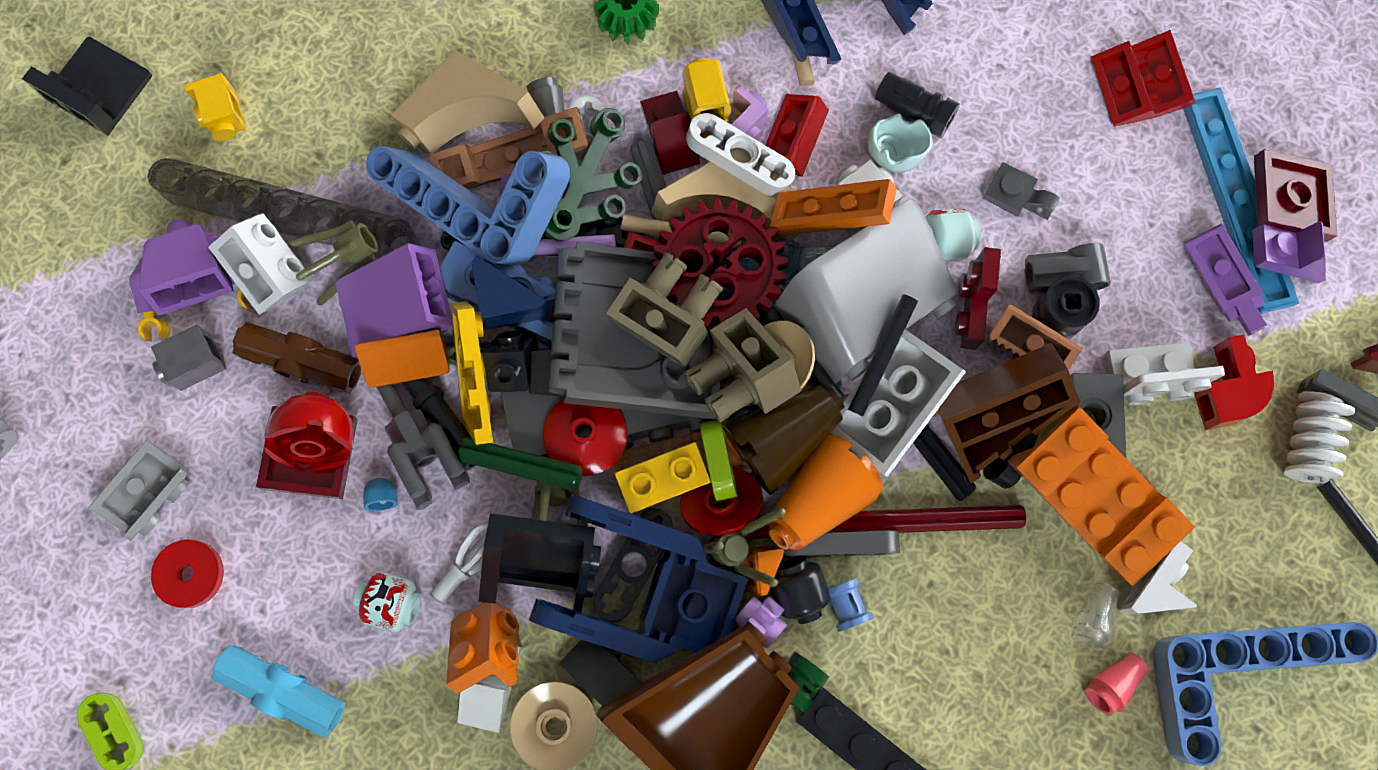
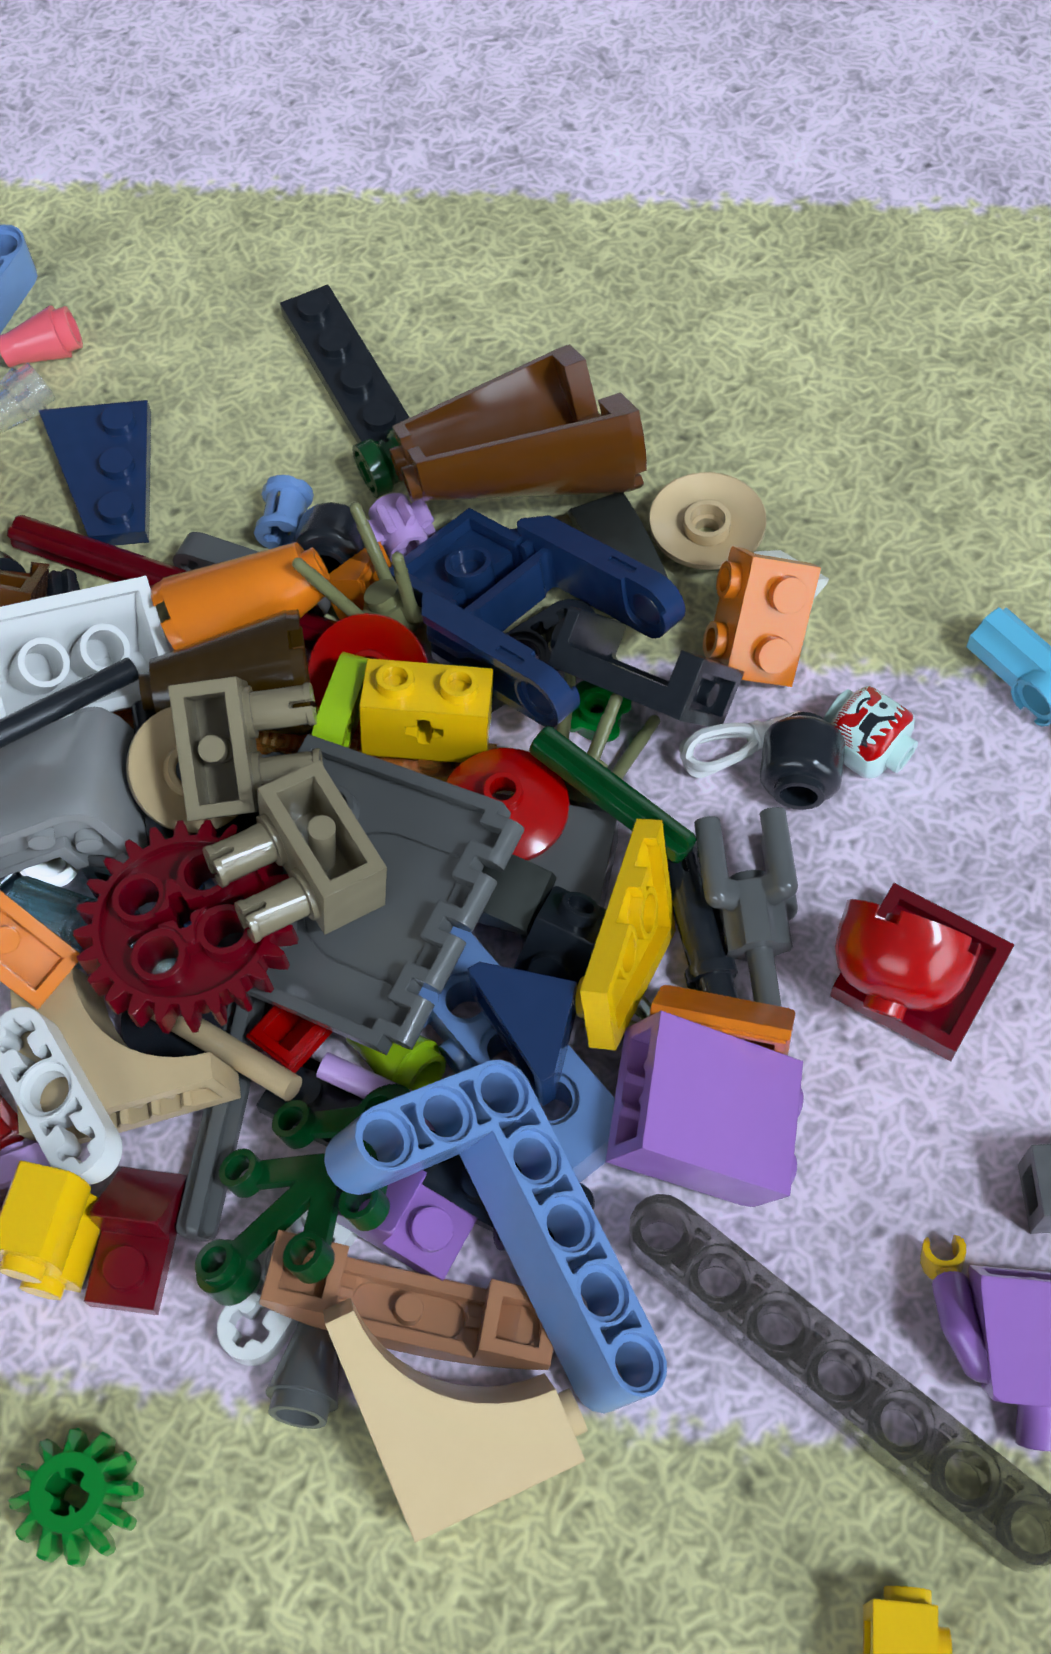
camera: 150 degrees left, 15 degrees down
(259, 262) = (905, 1274): white brick -> none
(297, 357) = (895, 1117): reddish brown piece -> none
(353, 245) = (742, 1217): olive plant -> none
(379, 490) = (833, 871): dark azure hinge -> none
(420, 557) = (802, 760): none -> black head
(998, 597) = (106, 466): none -> dark blue wing

